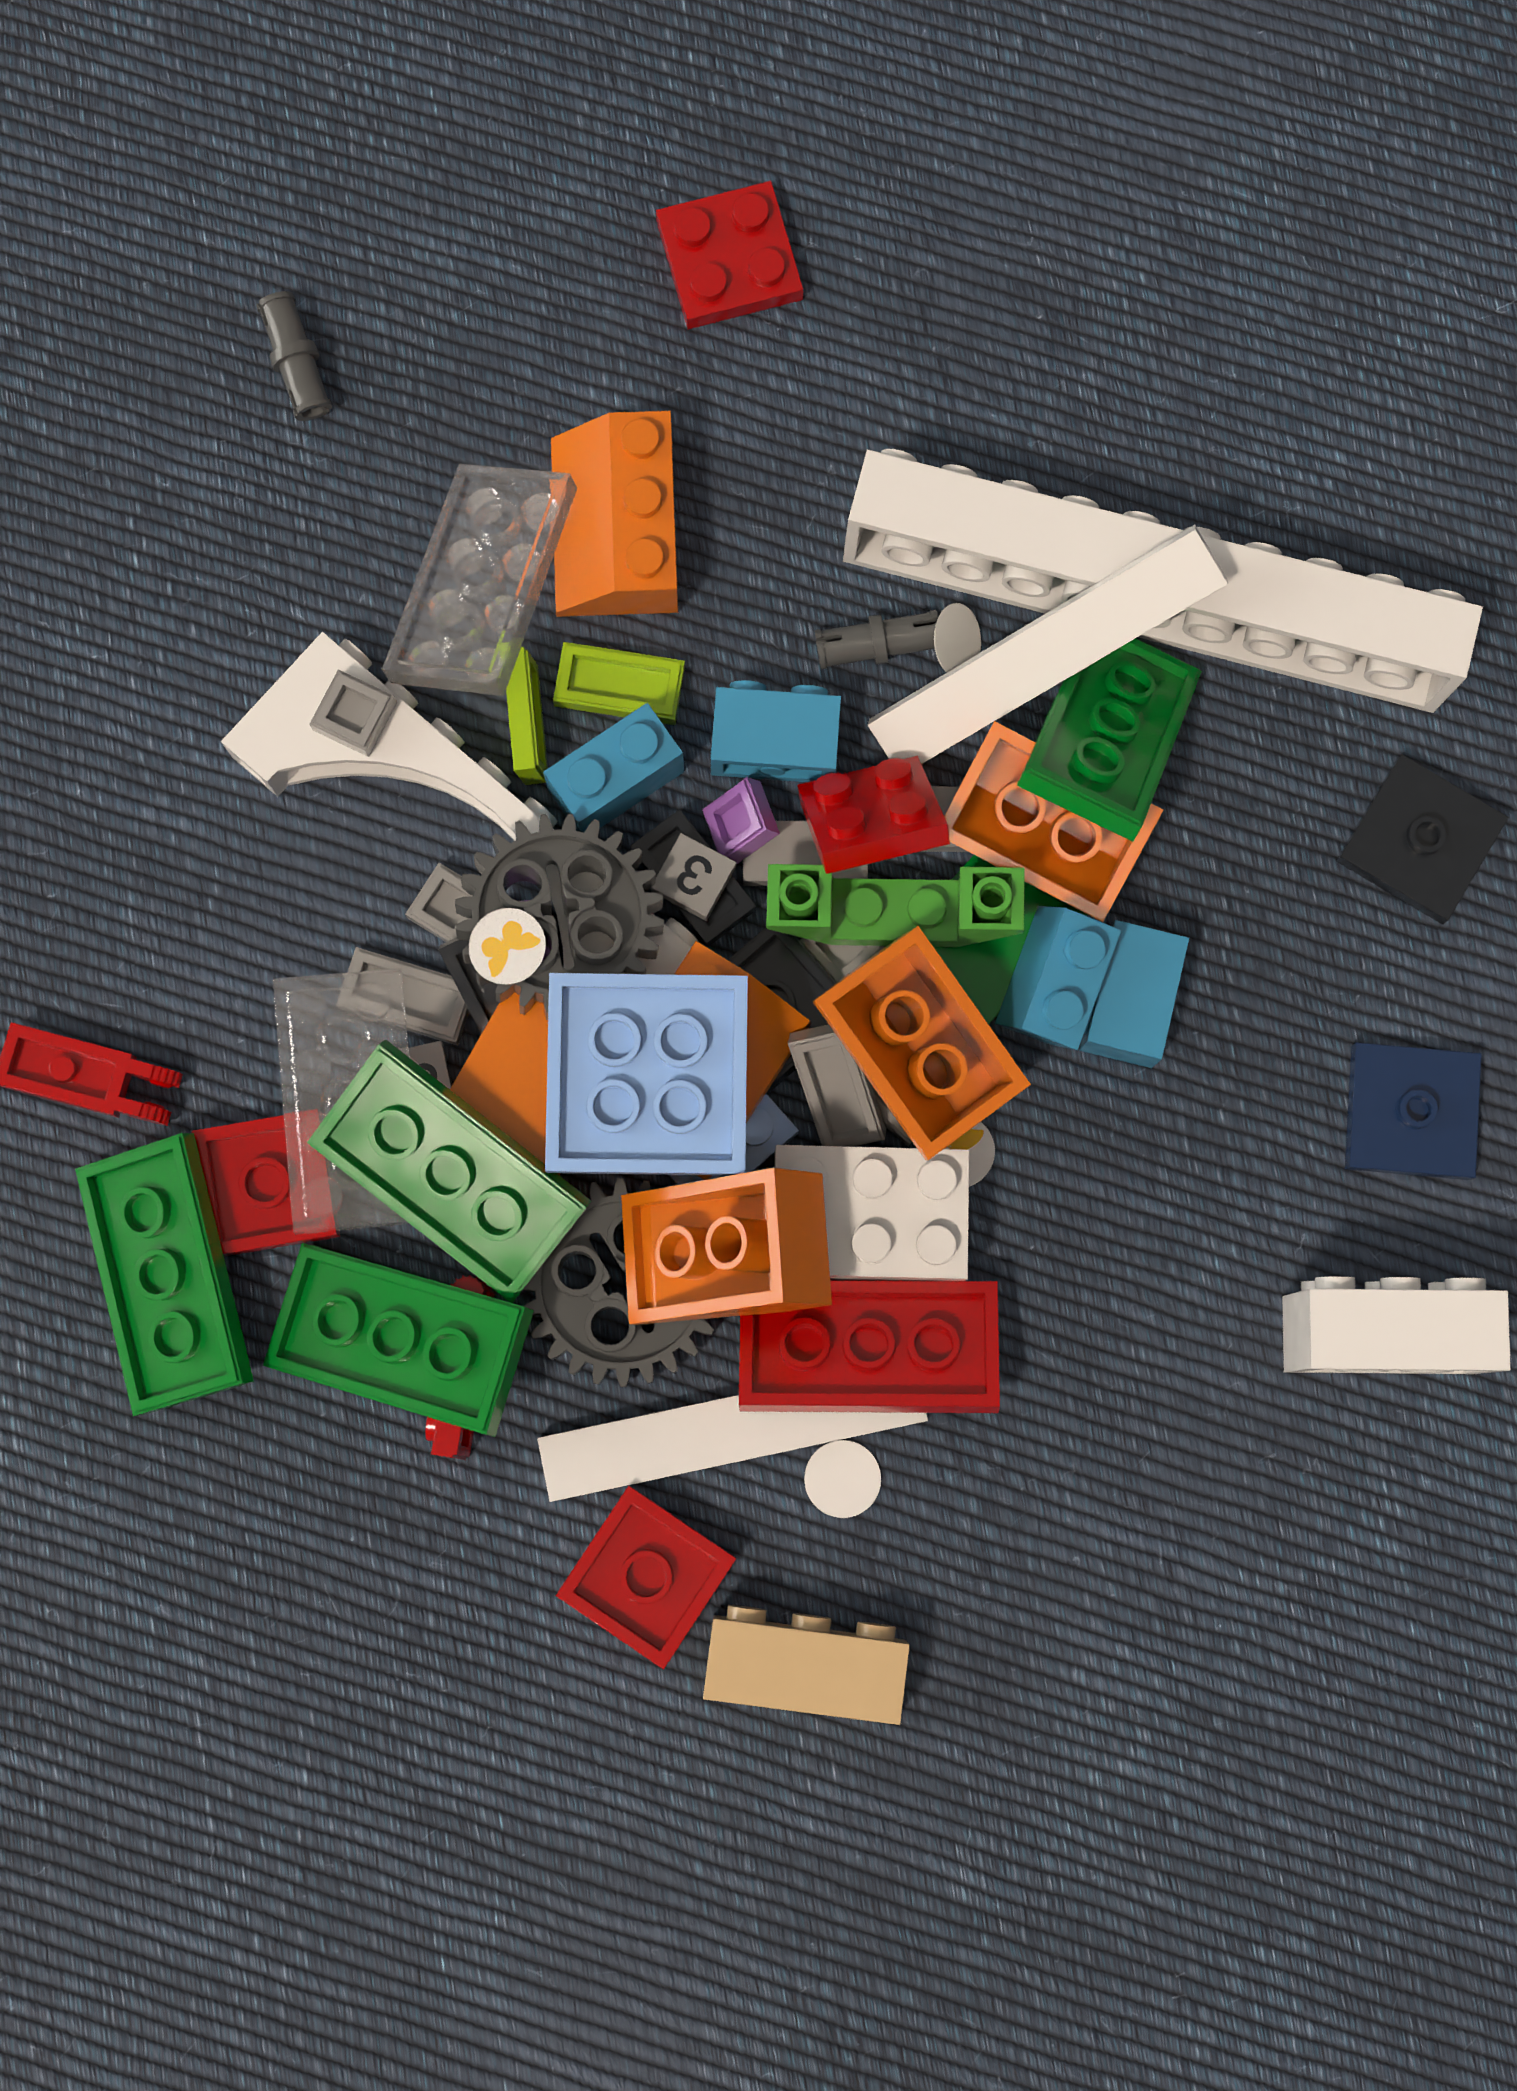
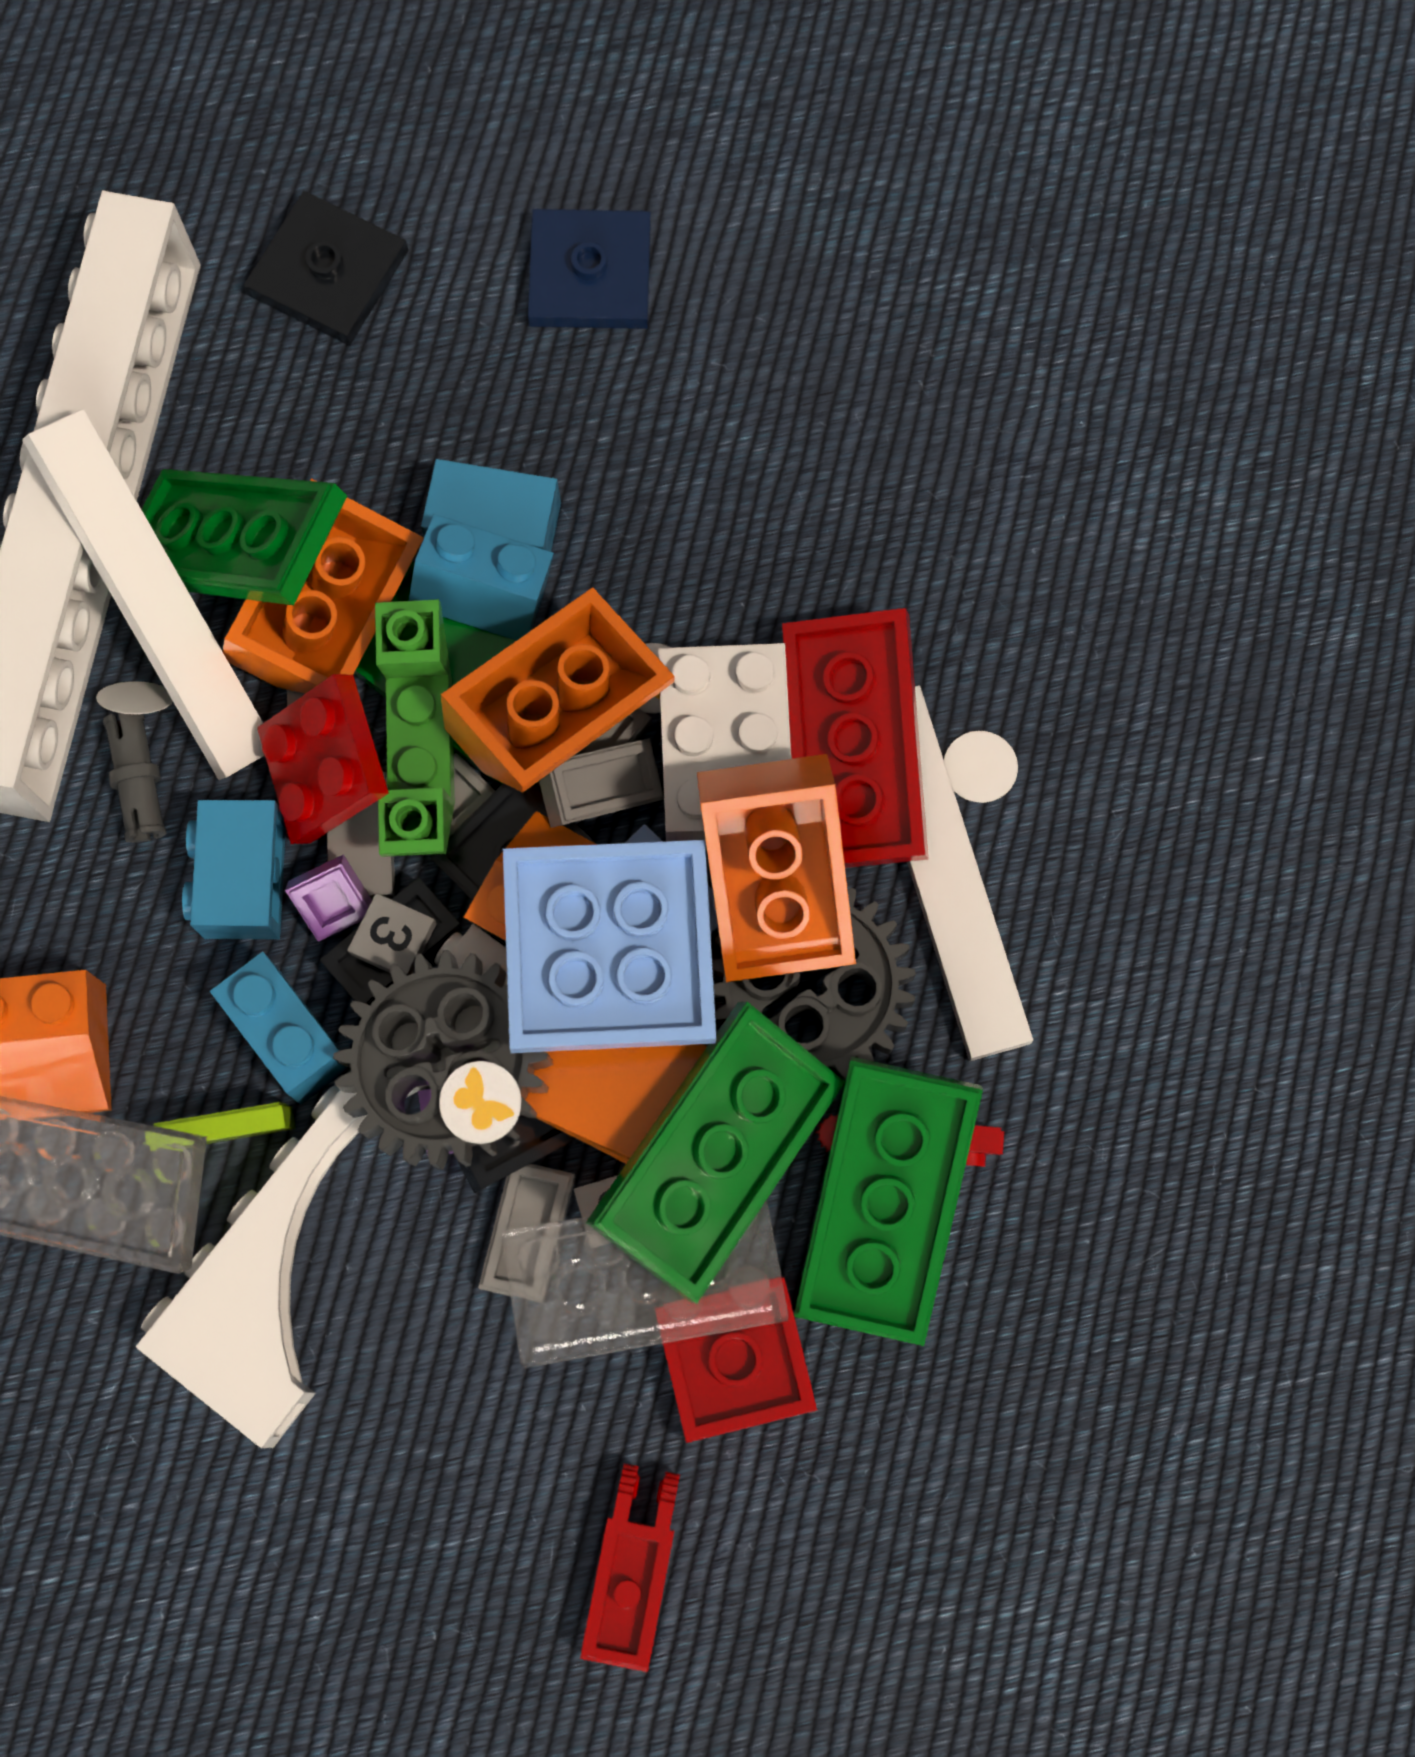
camera: 90 degrees left, 5 degrees down
(164, 1274) = (839, 1459): green tile -> none
(353, 713) = (226, 1302): light grey tile -> none
(435, 903) = (429, 1197): light grey tile -> none
(618, 682) = (183, 1038): lime tile -> none
(646, 1577) = (1096, 941): red plate -> none
(806, 1666) = (1165, 783): tan brick -> none
(1396, 1327) = (800, 265): white brick -> none

